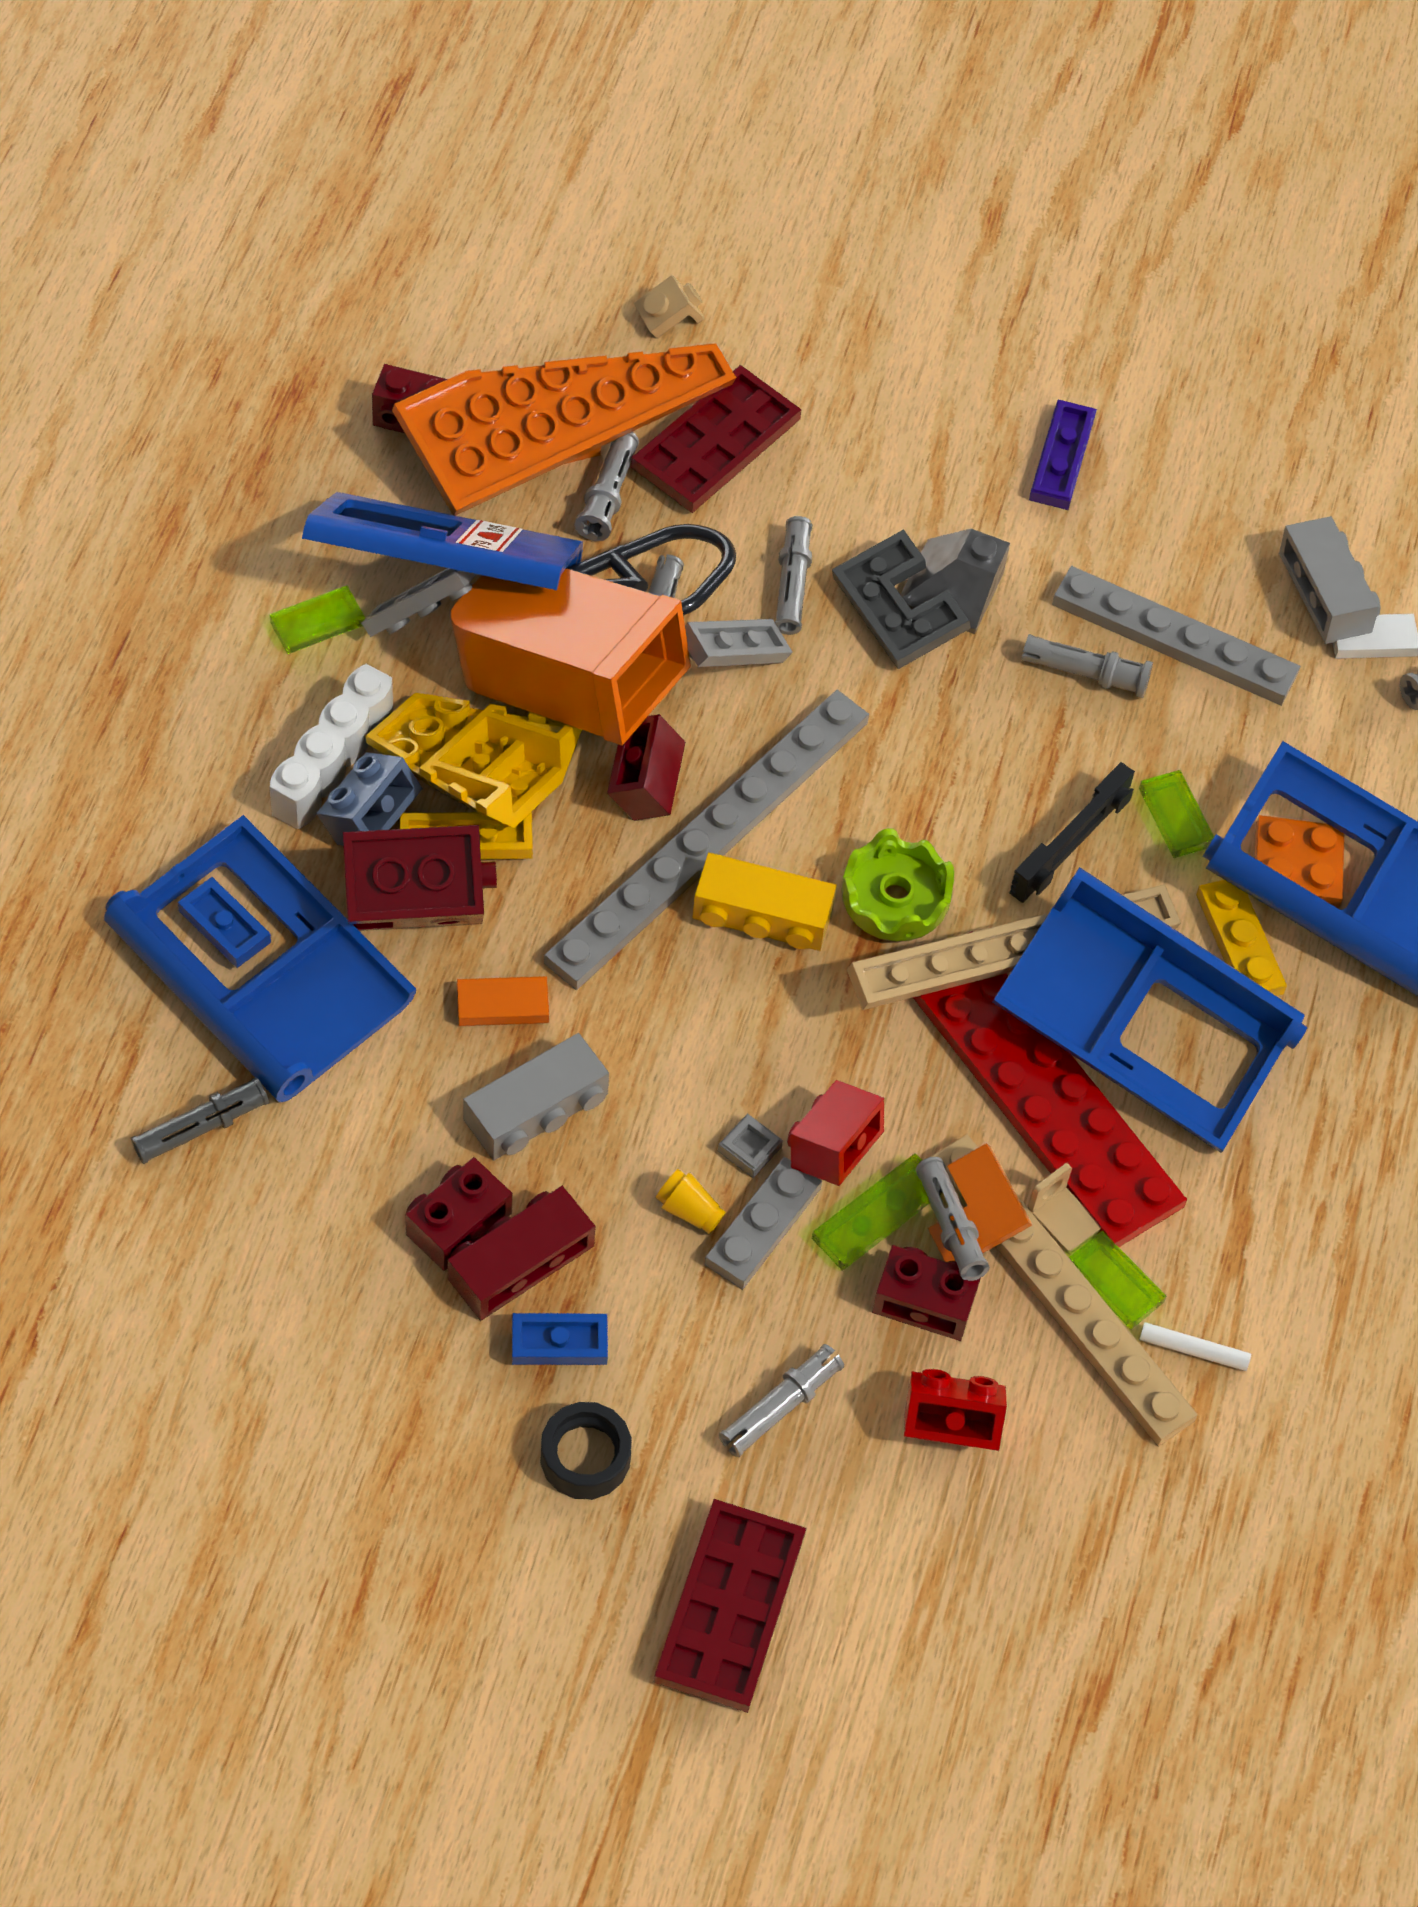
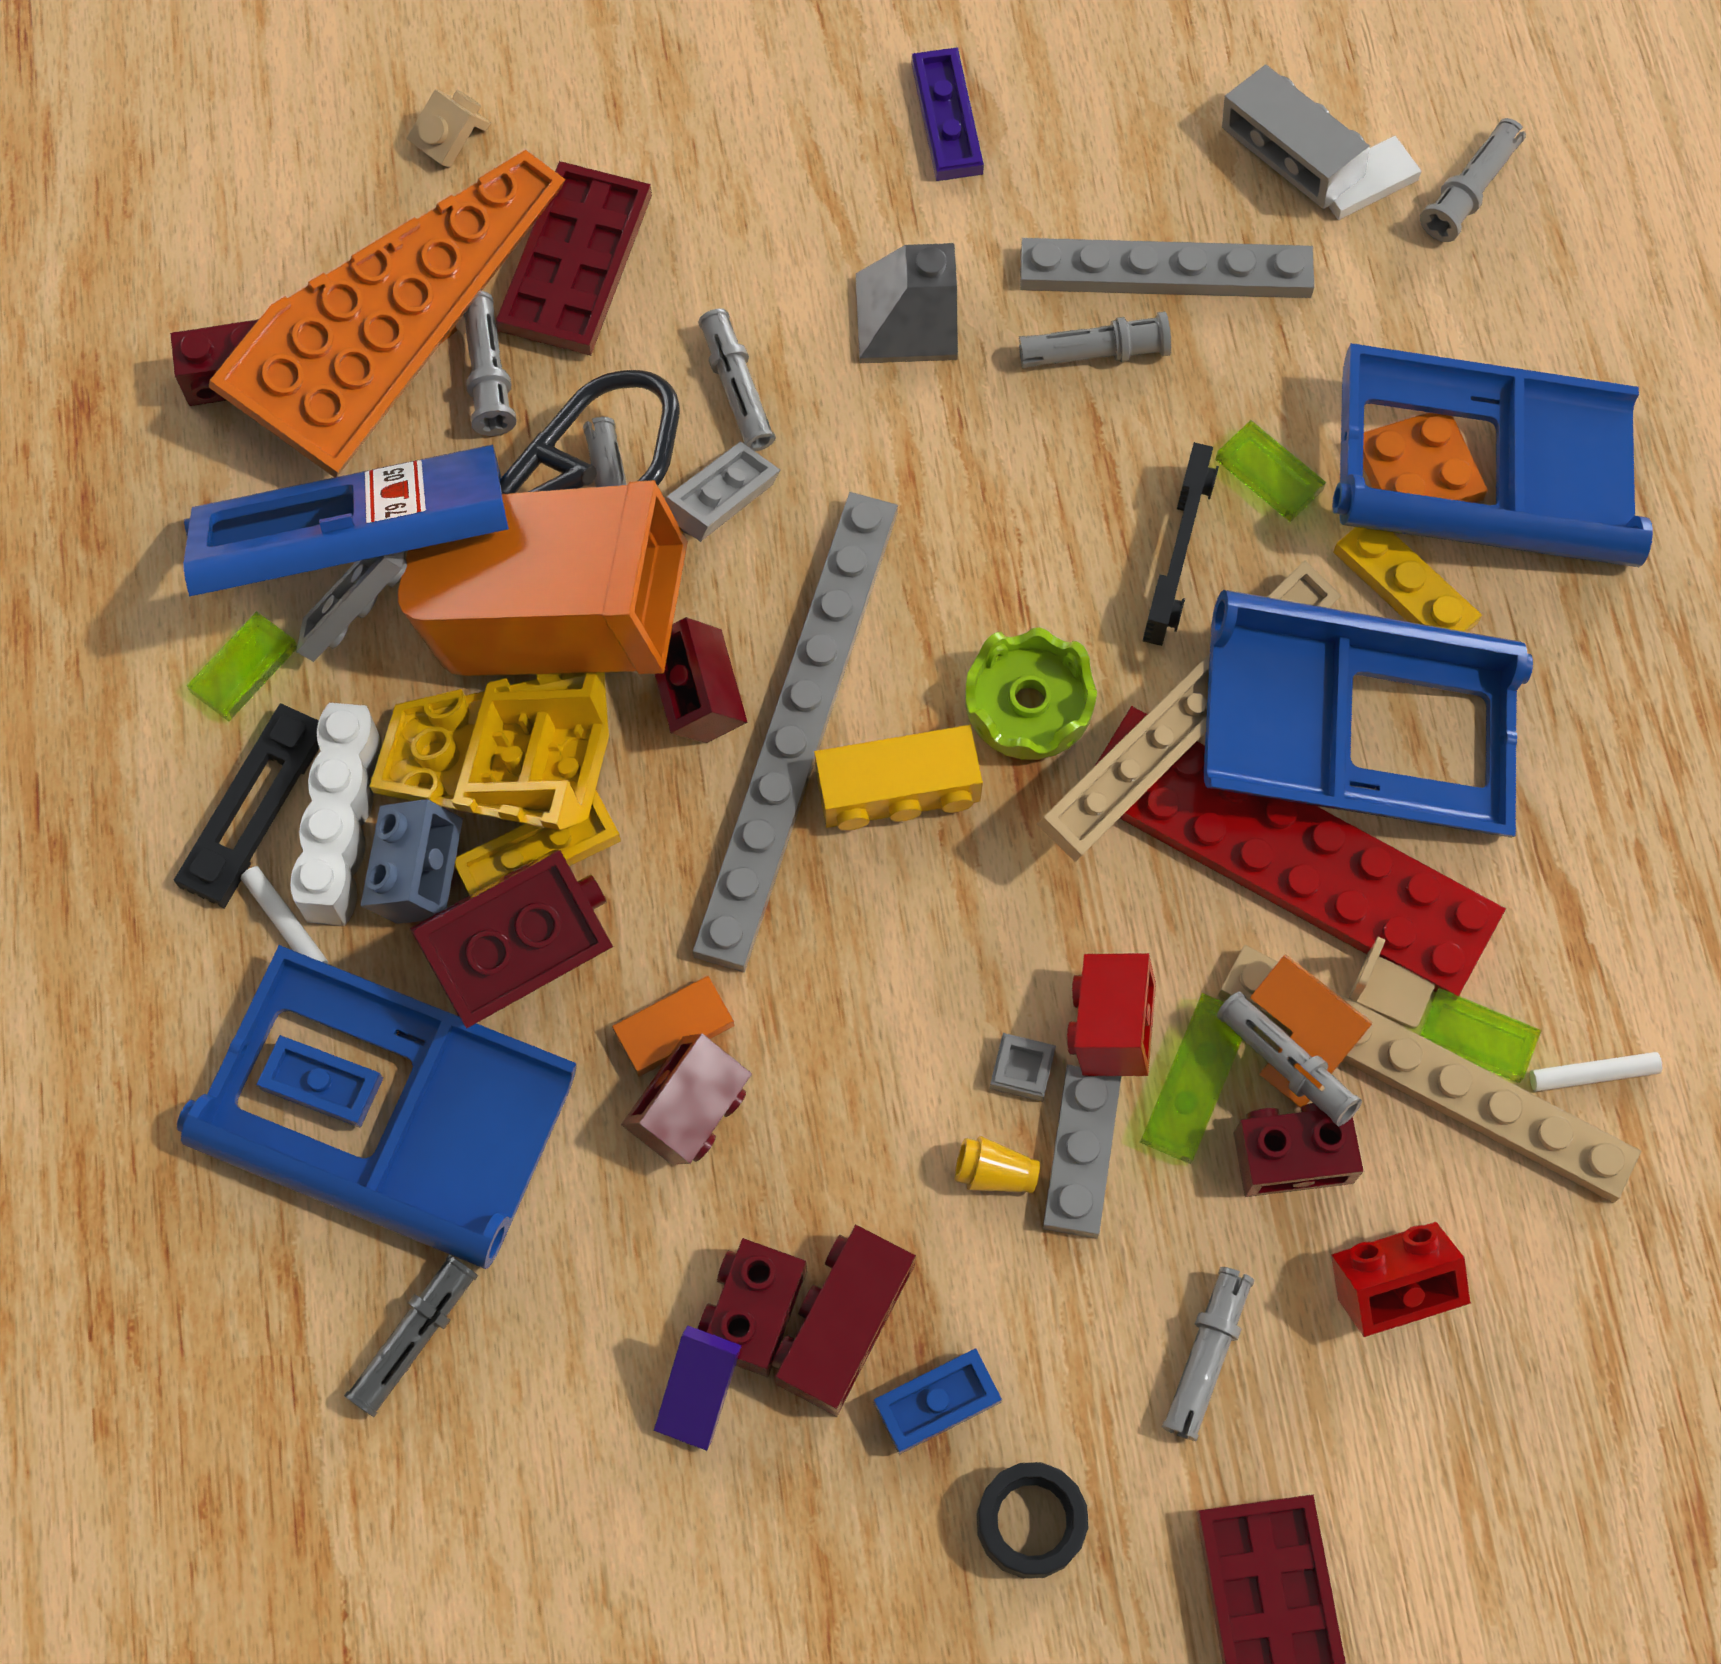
camera: 20 degrees left, 10 degrees up
(223, 746) = (216, 870): none -> black container
(255, 796) = (280, 914): none -> white piece
(387, 1244) = (697, 1387): none -> dark purple tile
(484, 1049) = (688, 1100): none -> brick
(536, 1097) = (770, 1126): light grey brick -> none
(902, 632) = (883, 393): dark grey plate -> none

